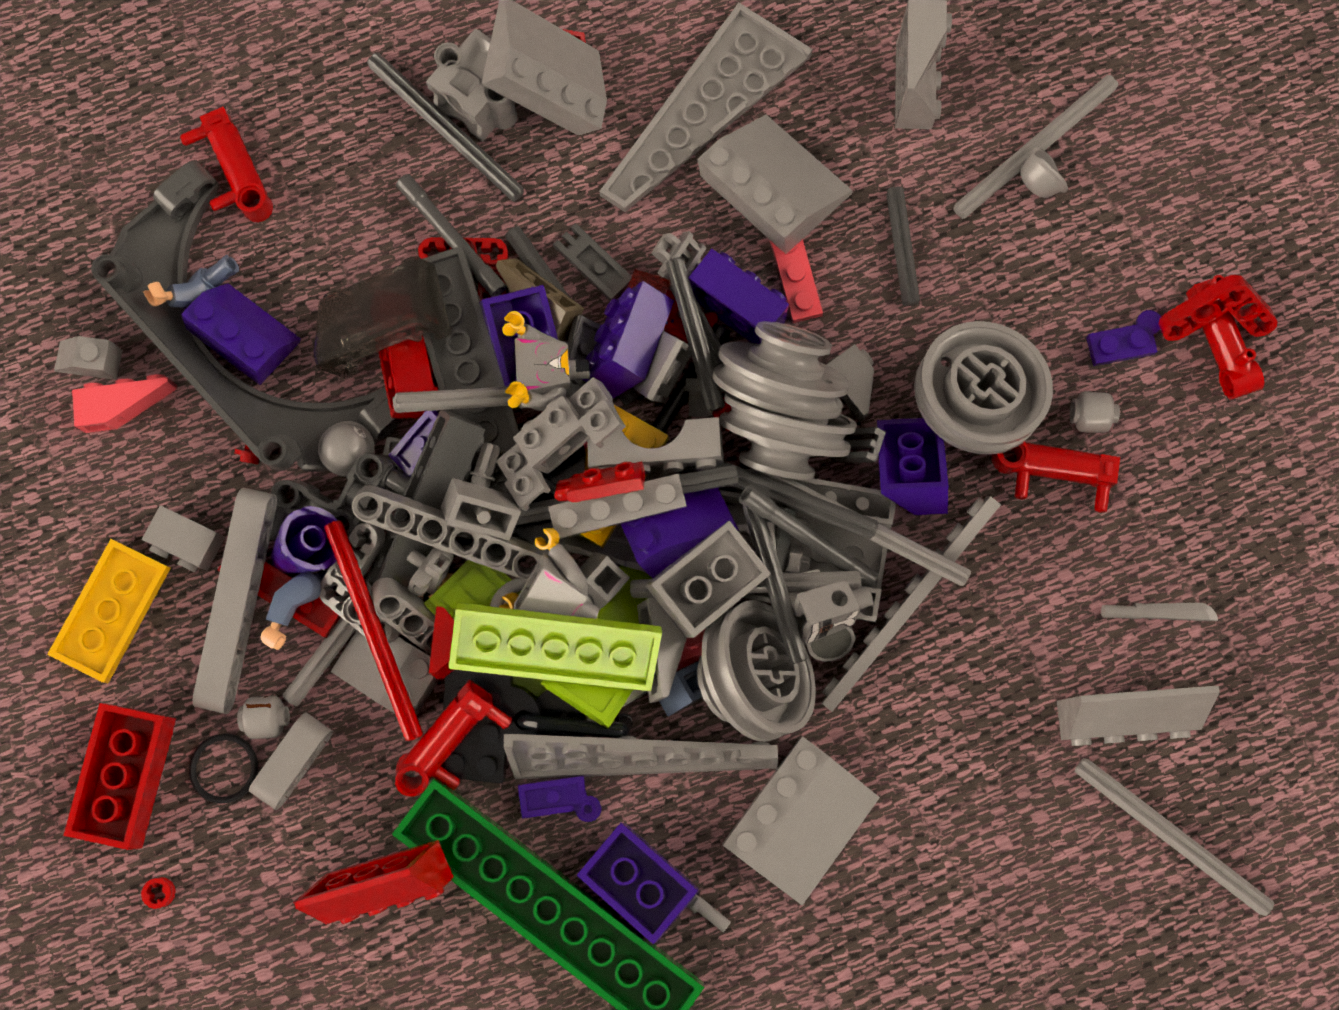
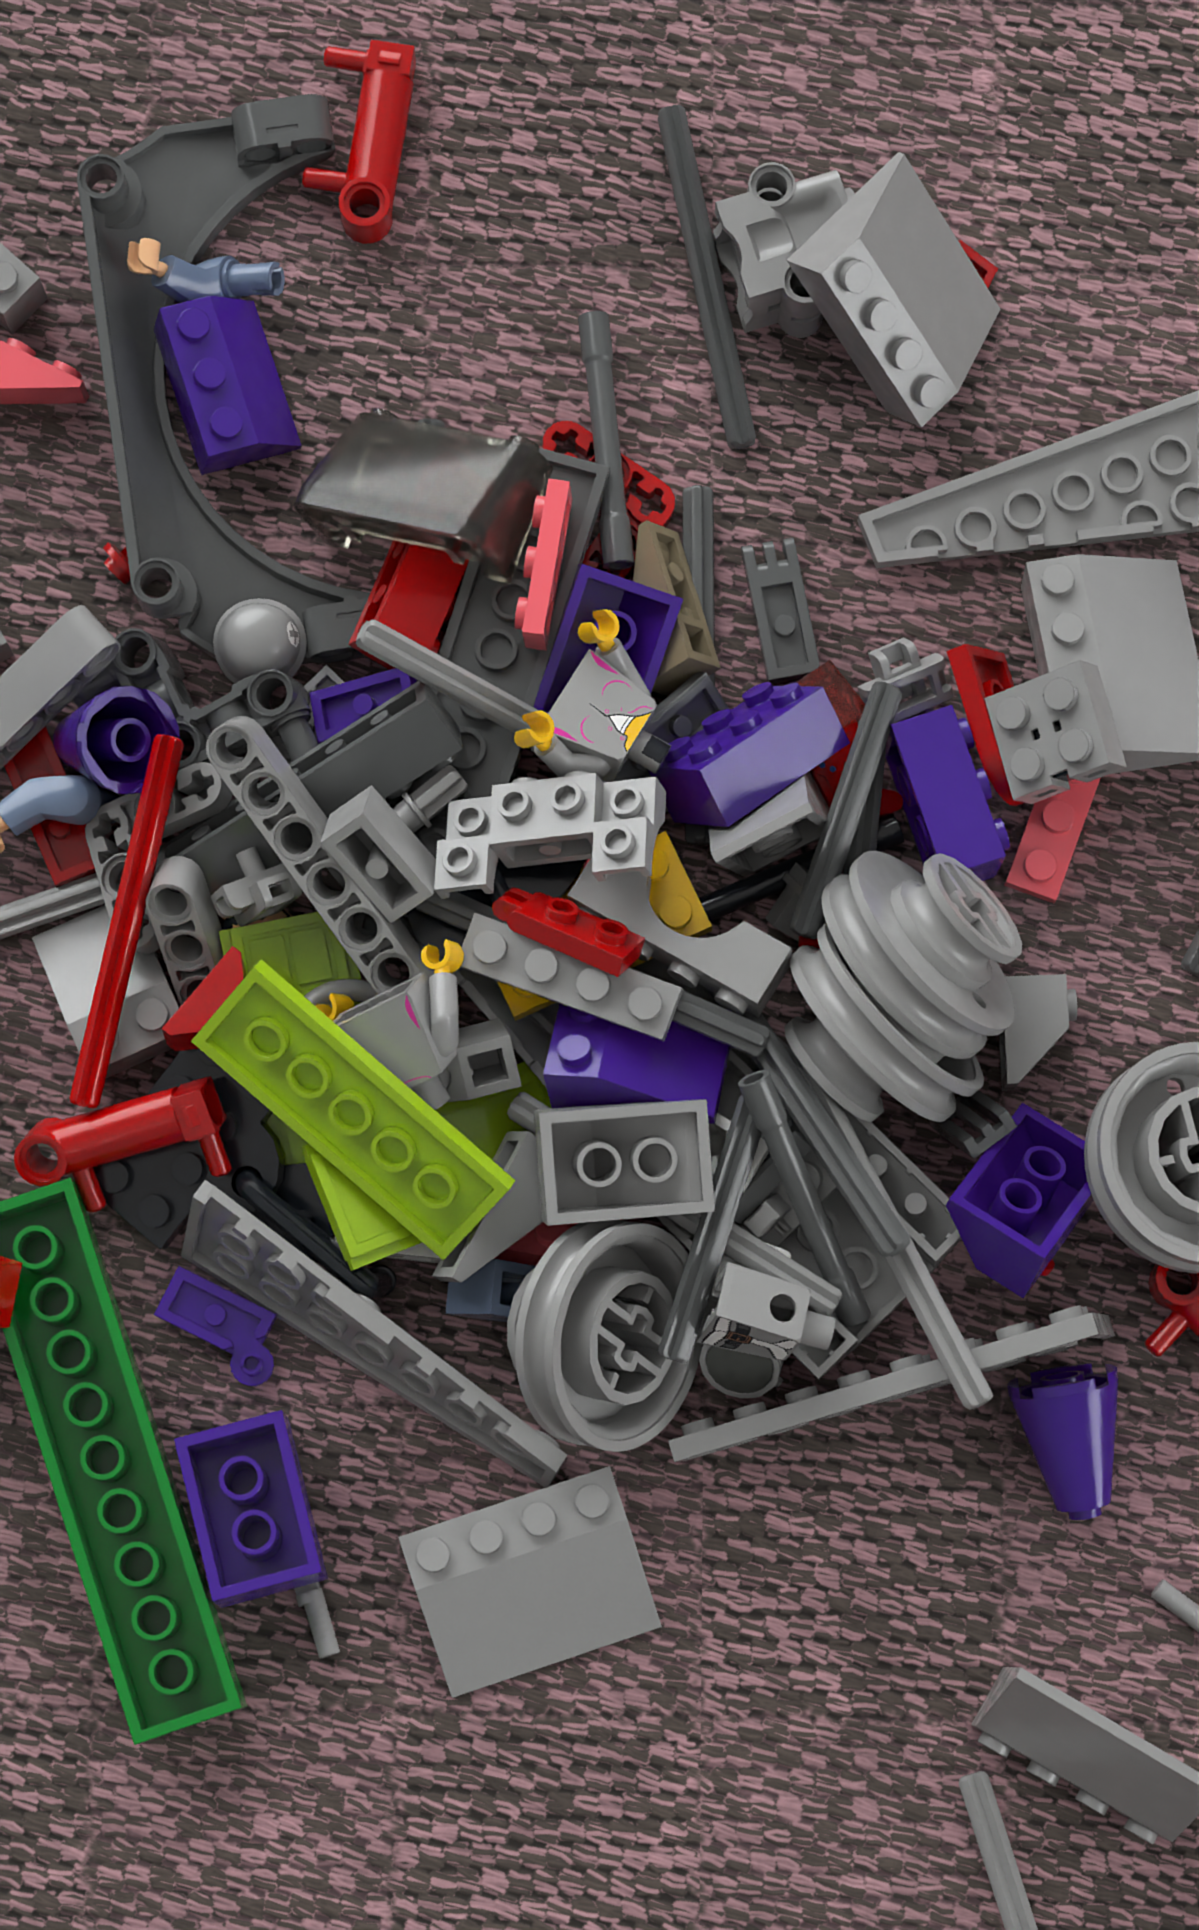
camera: 30 degrees right, 0 degrees up
(462, 313) = (544, 563): none -> coral plate
(736, 245) = (980, 675): none -> red tile
(771, 227) = (1055, 732): none -> light grey piece
(1011, 563) = (1071, 1433): none -> dark purple cone

